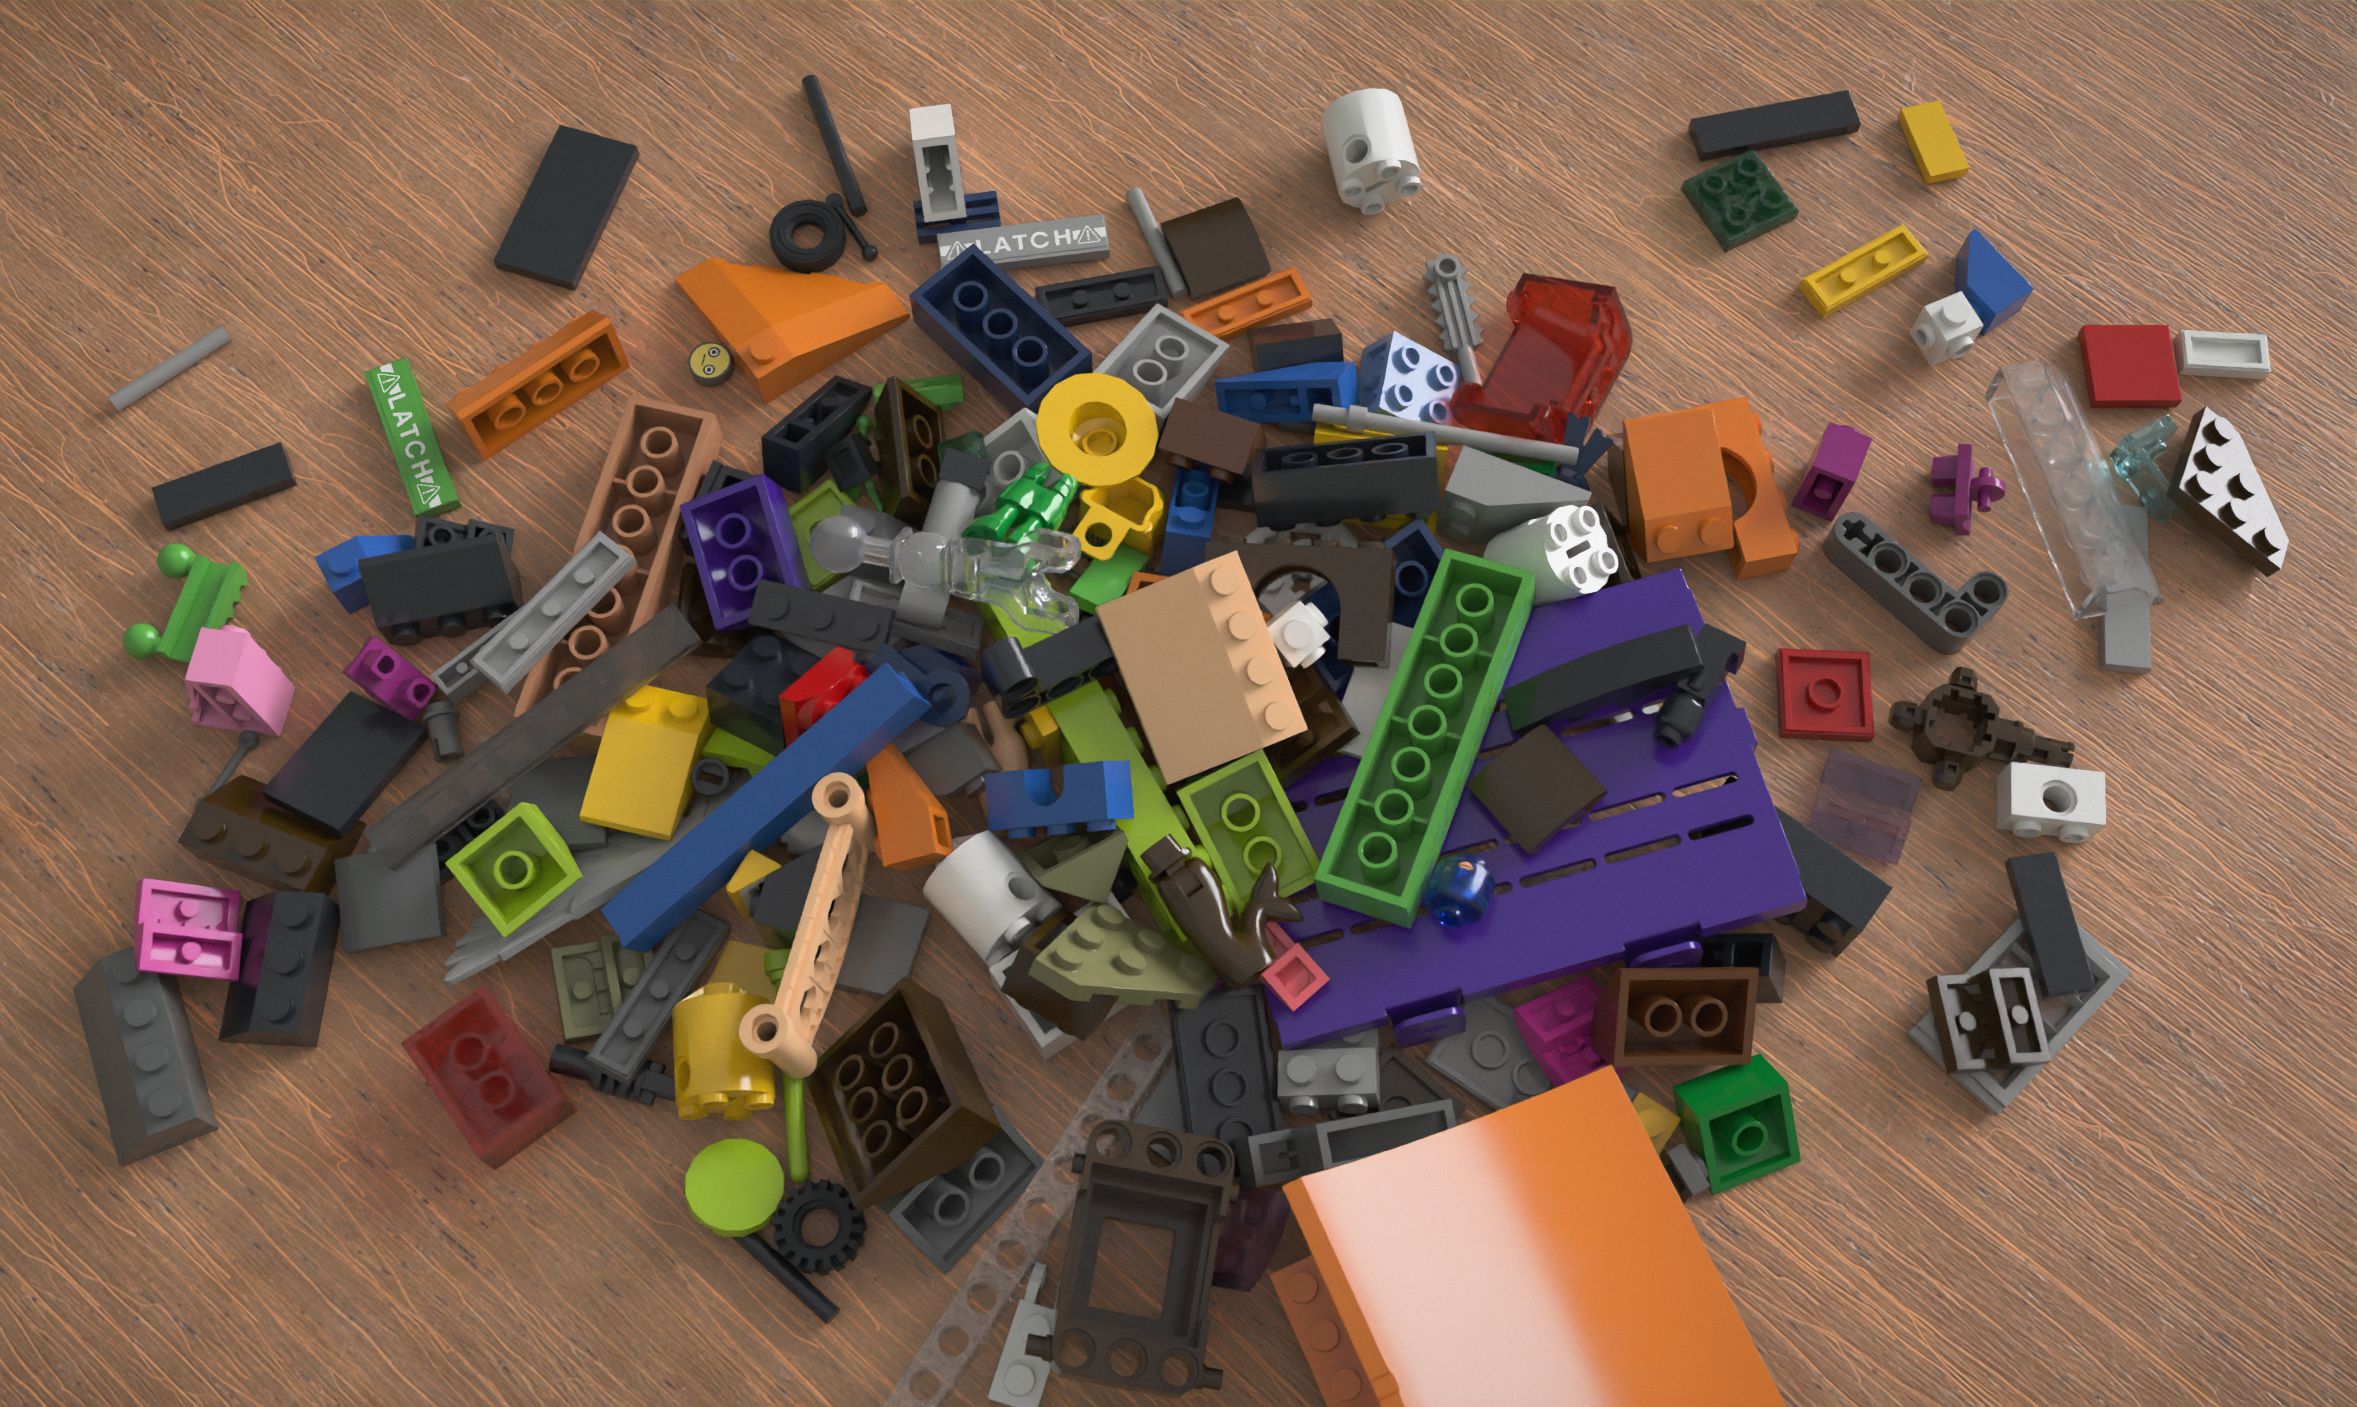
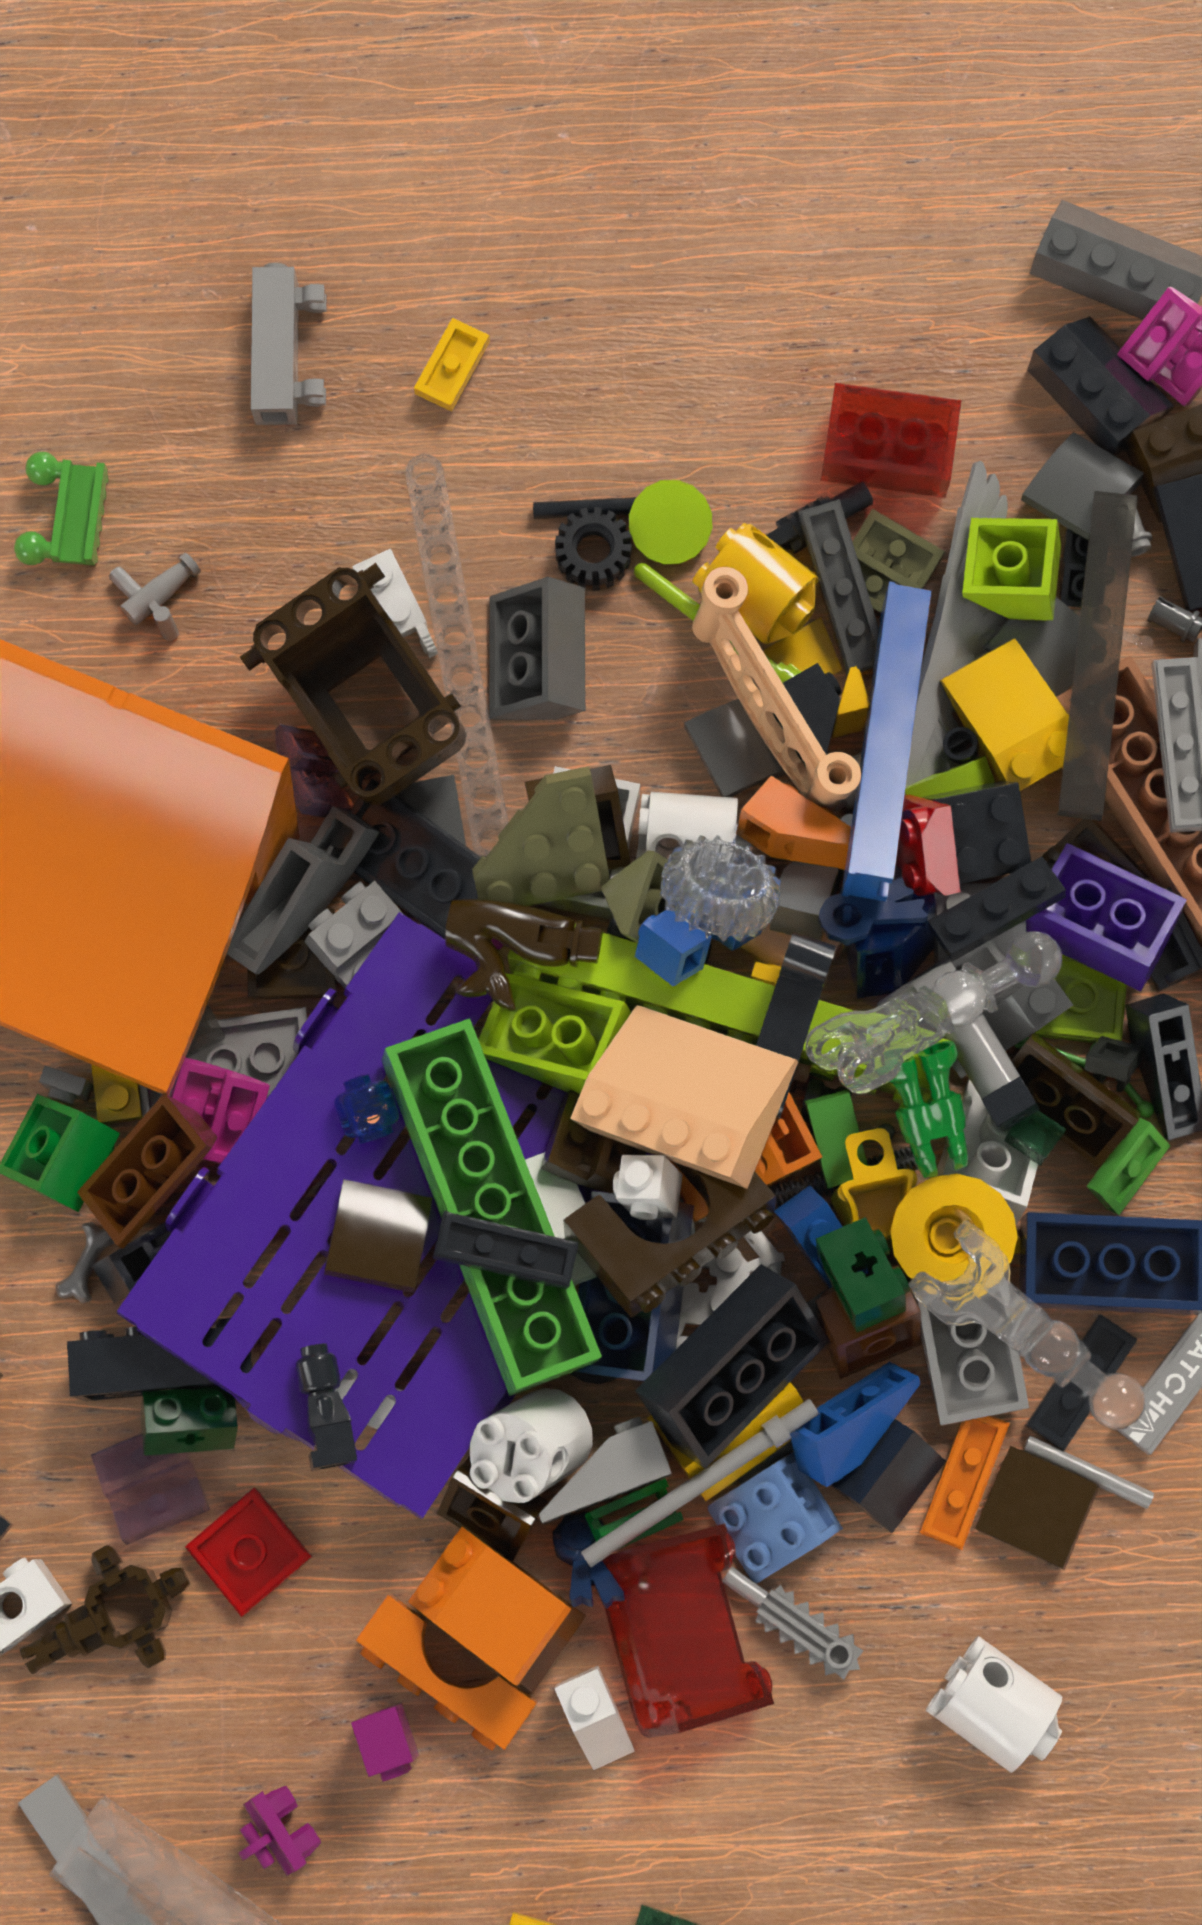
camera: 140 degrees right, 10 degrees up
(900, 1097) = (614, 655): dark brown slope -> none
(1017, 799) = (720, 888): none -> clear gear
(1116, 349) = (1048, 1345): none -> clear piece
(1211, 433) = (864, 1298): none -> dark green brick
(1294, 973) = (436, 964): coral slope -> none
(1452, 674) = (505, 1250): none -> black tile
(1604, 677) = (397, 1356): black slope -> none
(1658, 372) = (594, 1717): none -> white slope
(1802, 1008) = (77, 1282): none -> flat silver piece
(1809, 806) = (188, 1420): none -> dark green brick
(1911, 576) = (259, 1708): dark grey beam -> none

